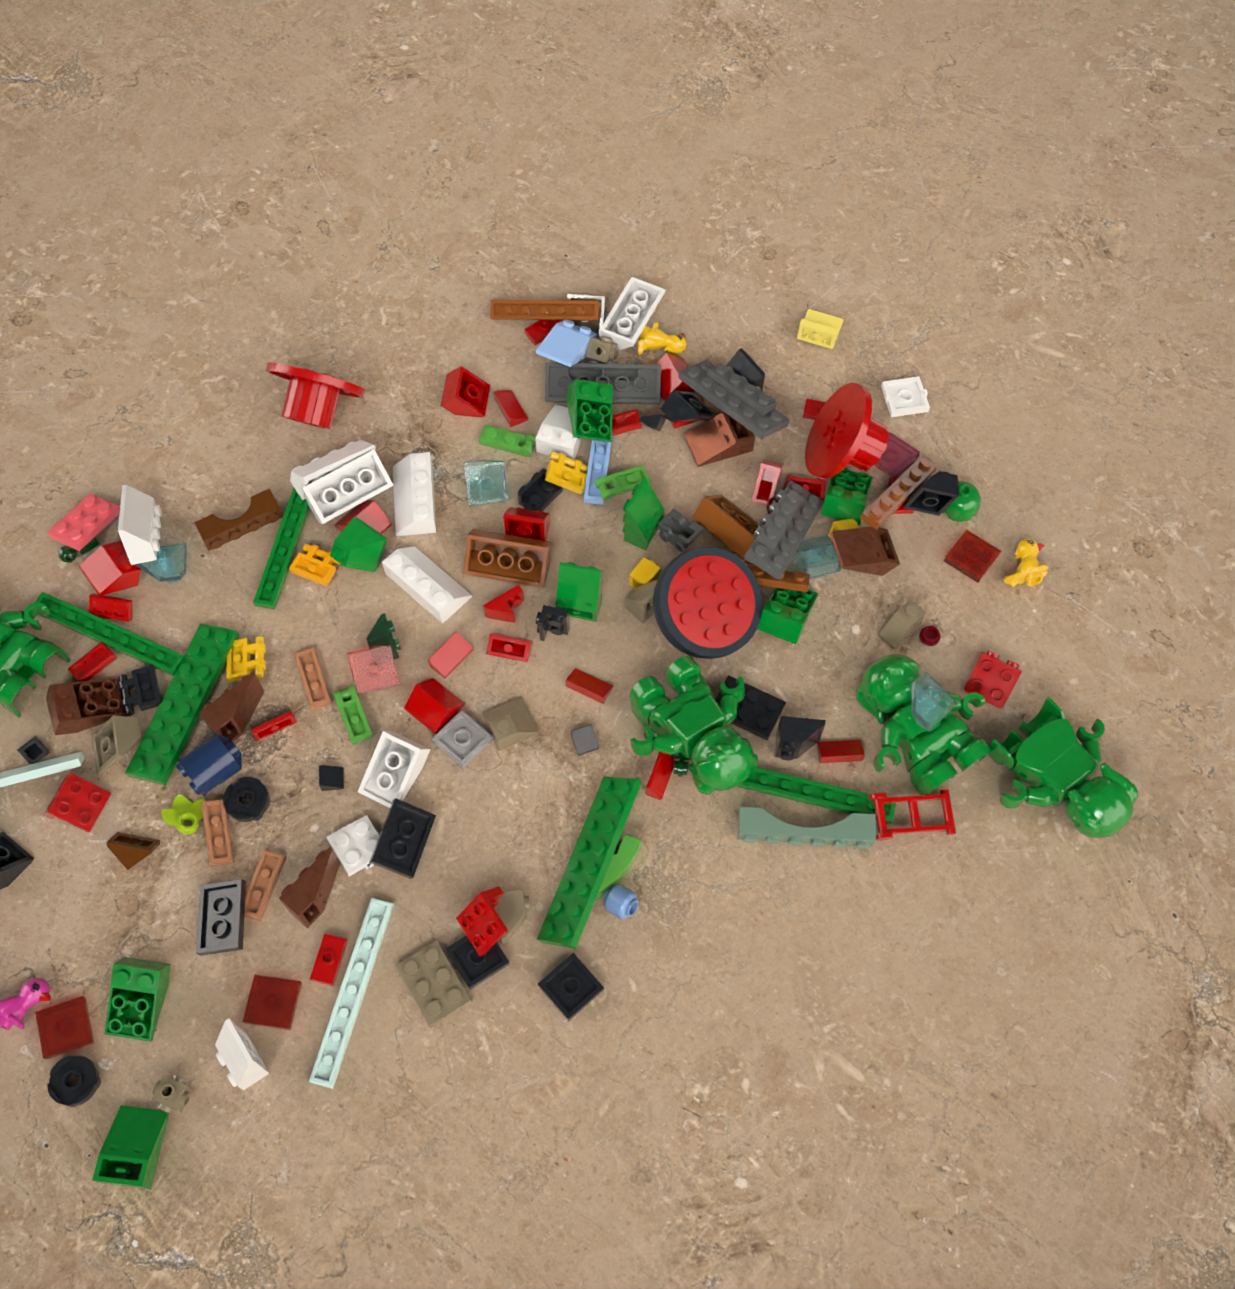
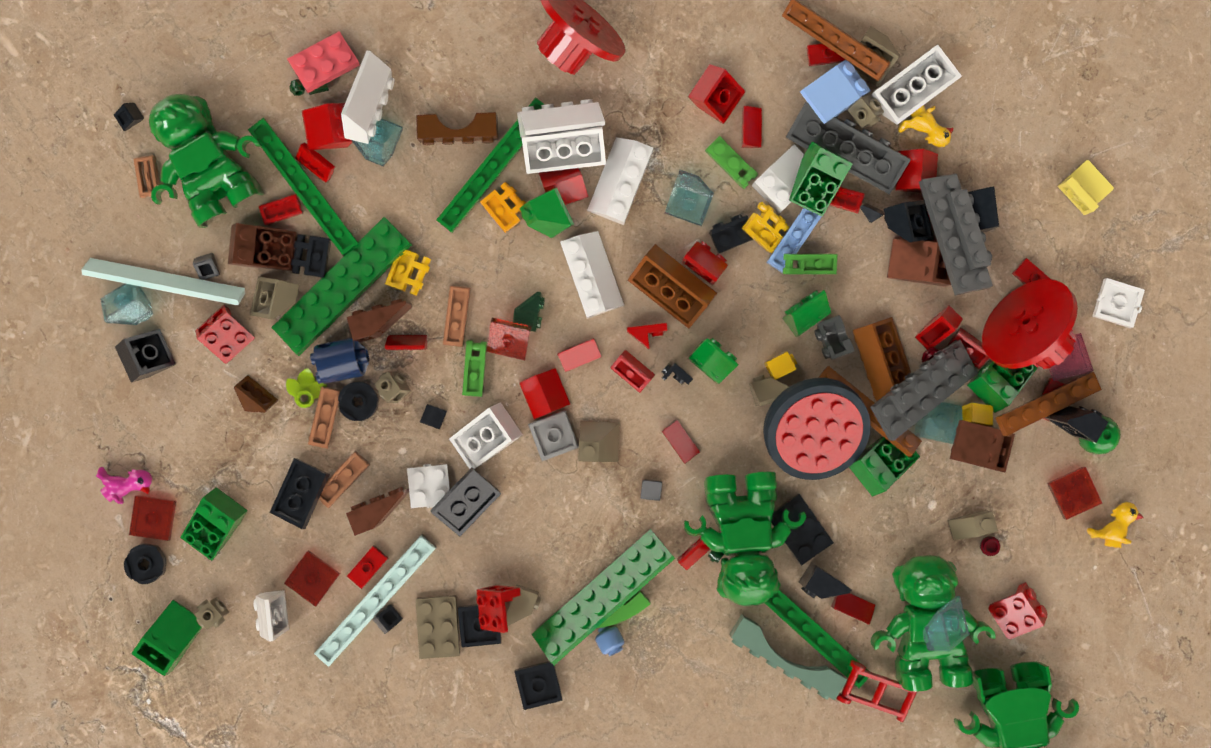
camera: 30 degrees right, 25 degrees up
(276, 766) = (392, 387): none -> dark tan brick
(374, 1004) = (387, 619): none -> black slope

